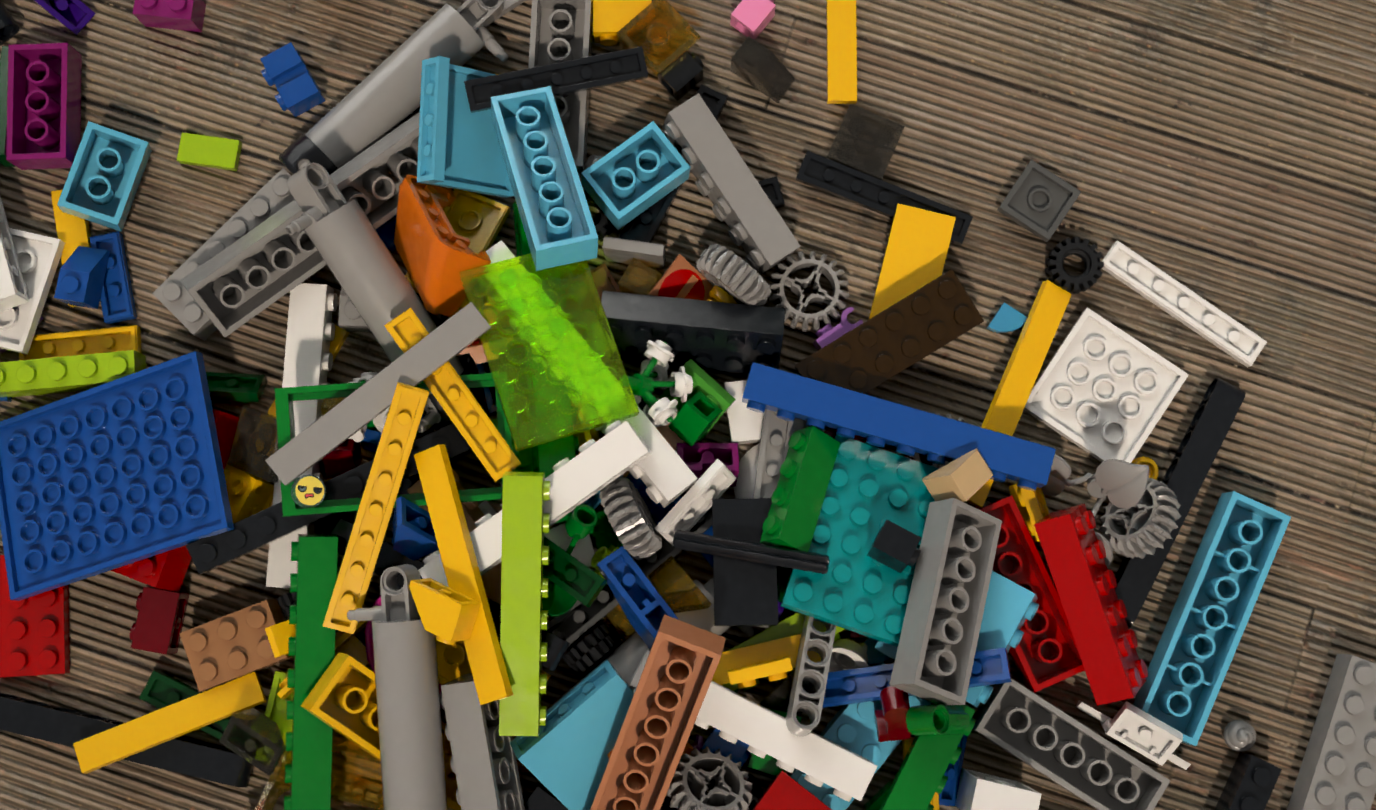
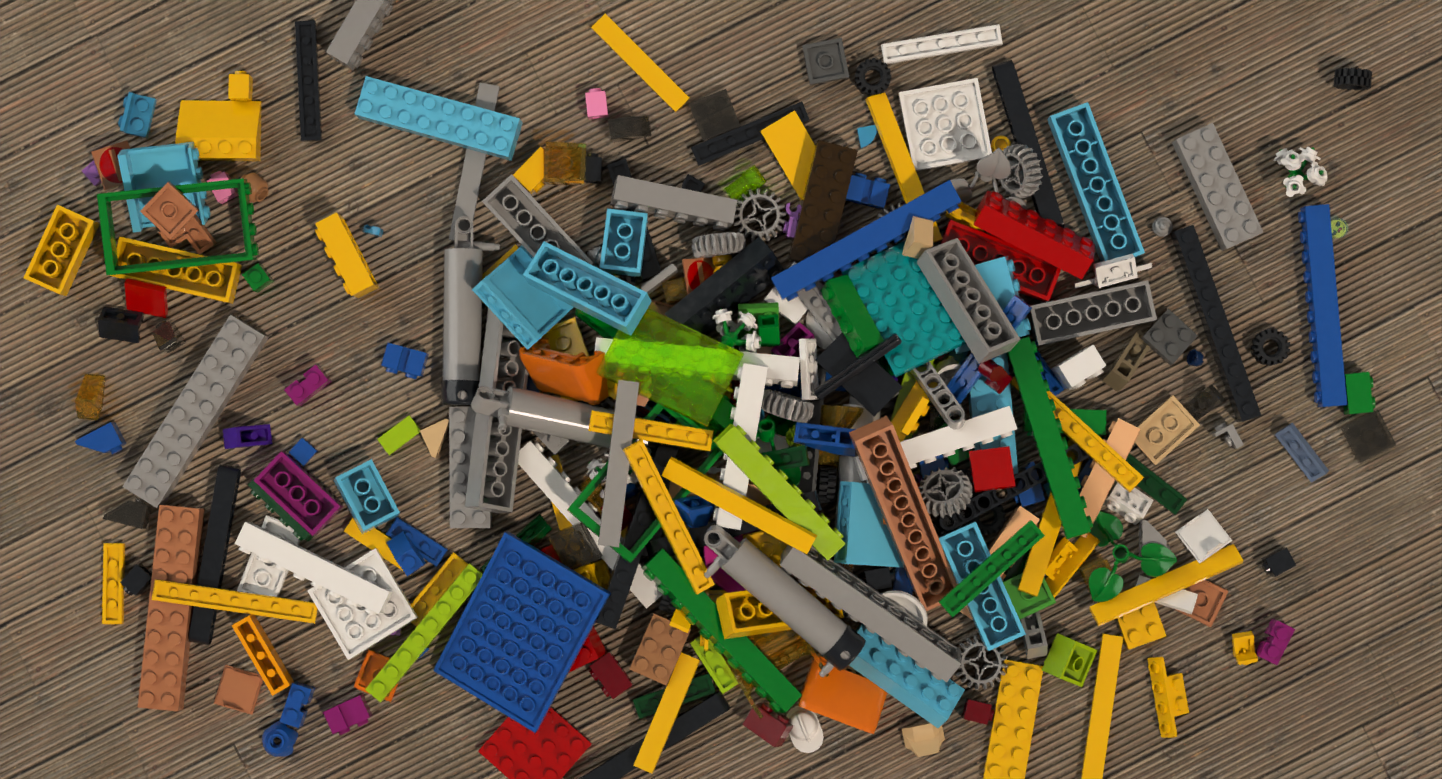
camera: 50 degrees left, 5 degrees up
(97, 72) = (303, 451): none -> blue tile
(237, 188) = (435, 436): none -> tan slope
(254, 739) = (716, 678): clear smoke slope -> none
(308, 491) = (631, 539): tile -> none
(444, 610) = (749, 528): yellow slope -> none
(562, 77) = (541, 232): black plate -> none
(837, 244) = (750, 179): none -> clear neon green piece
(895, 547) = (921, 298): black brick -> none
(936, 720) = (1015, 358): green piece -> none
(948, 378) = (867, 191): none -> blue brick

